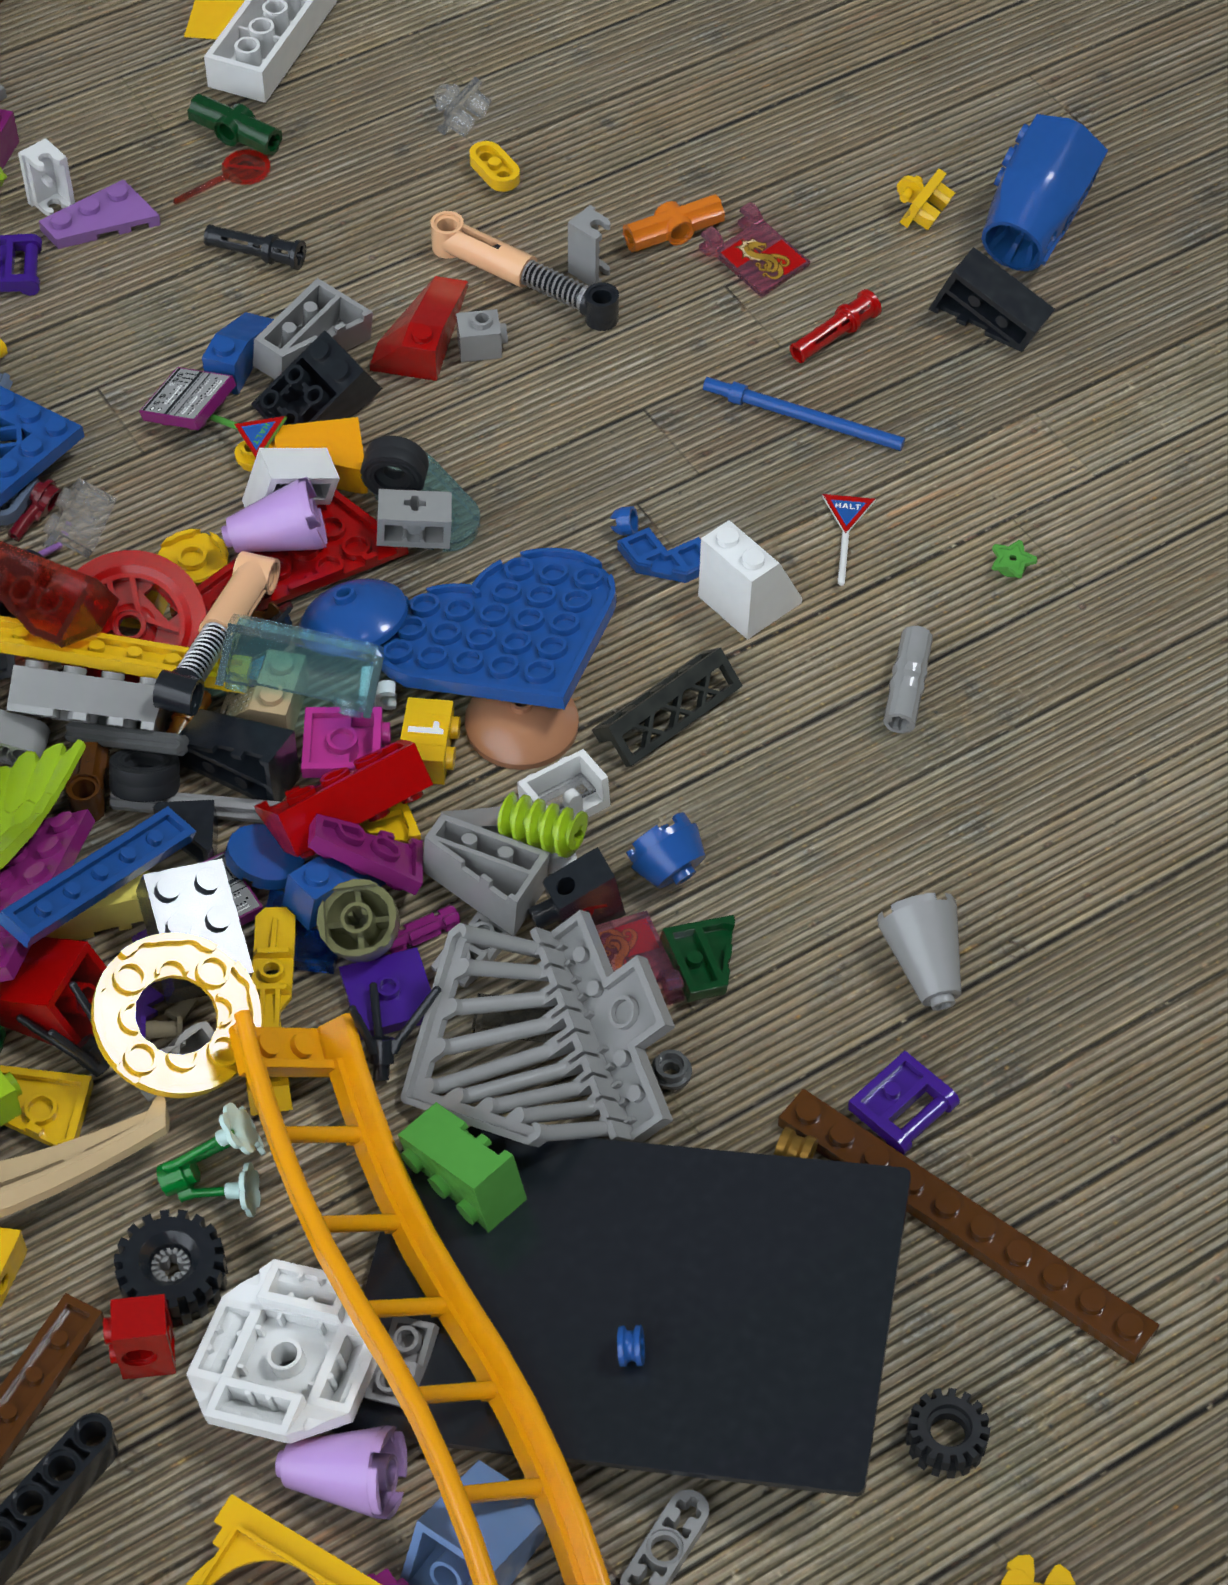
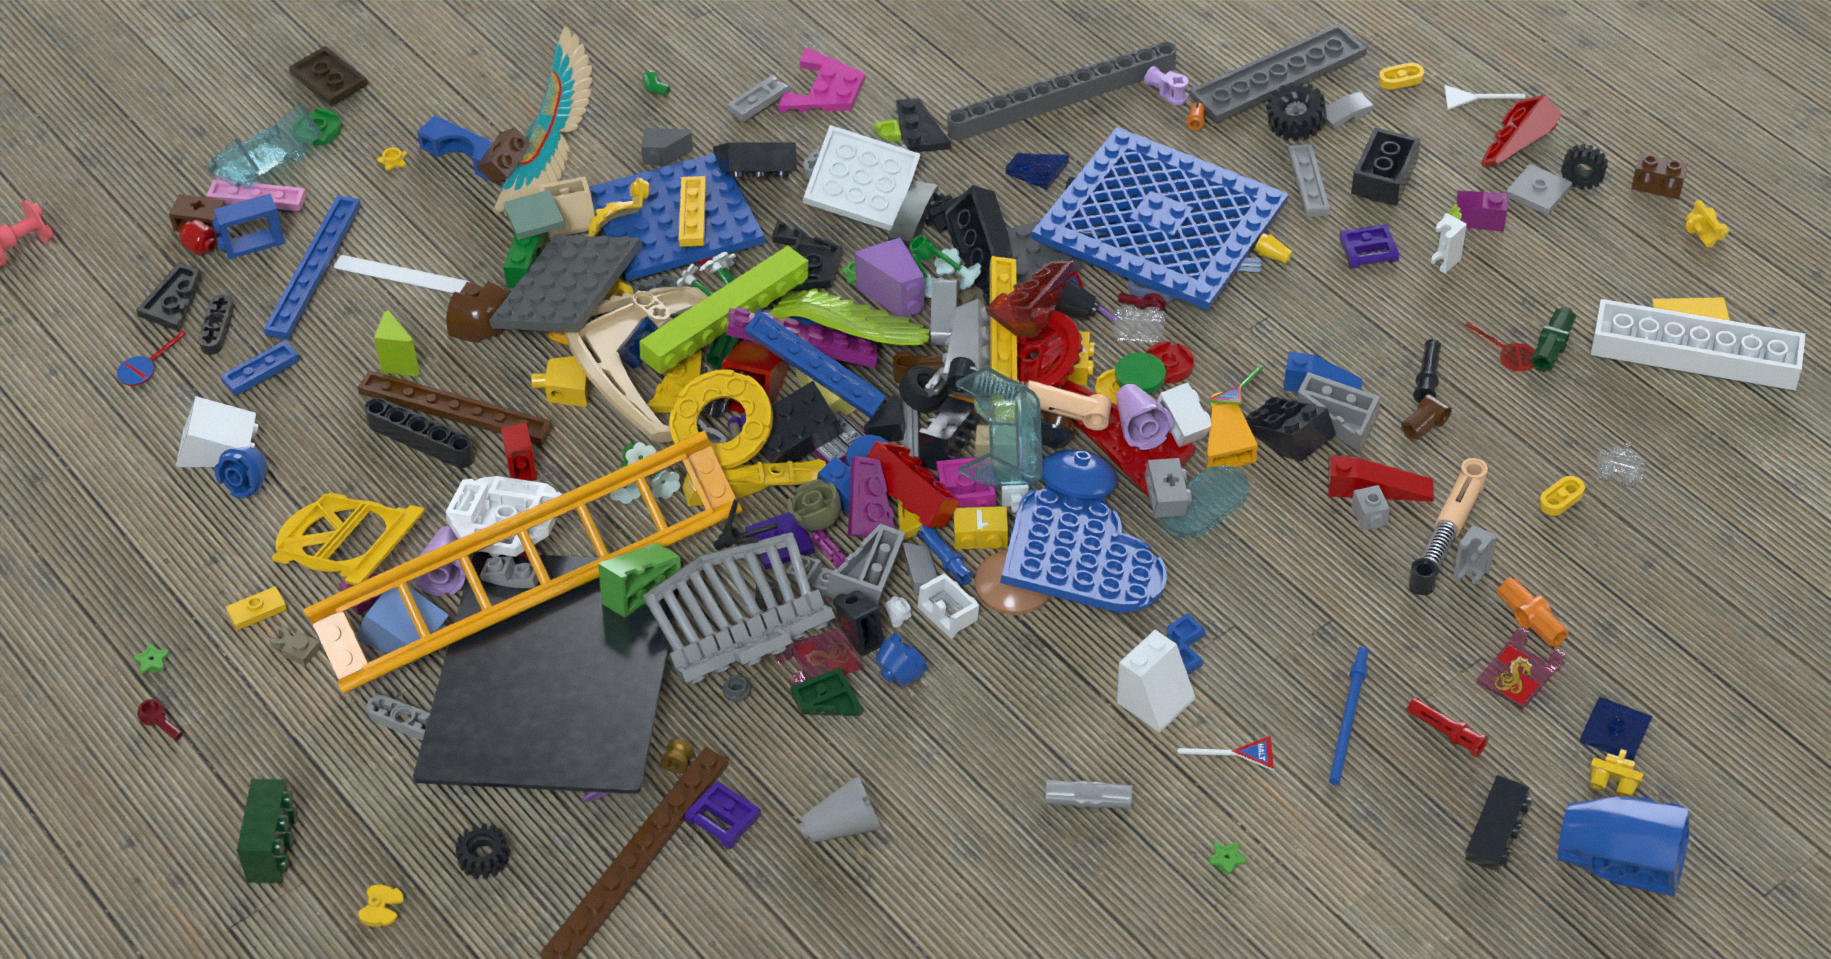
camera: 85 degrees right, 5 degrees down
(105, 211) = (1437, 286): medium lavender wing -> none
(156, 501) = (1176, 360): none -> red tile
(167, 1242) = (568, 451): black bush -> none
(182, 525) = (1142, 370): none -> green tile
(187, 398) = (1259, 357): tile -> none
(333, 256) = (1428, 414): none -> reddish brown piece
(397, 453) = (1207, 468): black tyre -> none
(477, 783) = (951, 561): none -> blue pin
(542, 826) = (901, 583): lime piece -> none
(626, 520) = (1203, 617): blue hinge -> none
(630, 1345) = (511, 657): blue bush -> none
(659, 696) = (1045, 650): pearl dark grey fence -> none
(851, 191) = (1615, 728): none -> clear blue plate

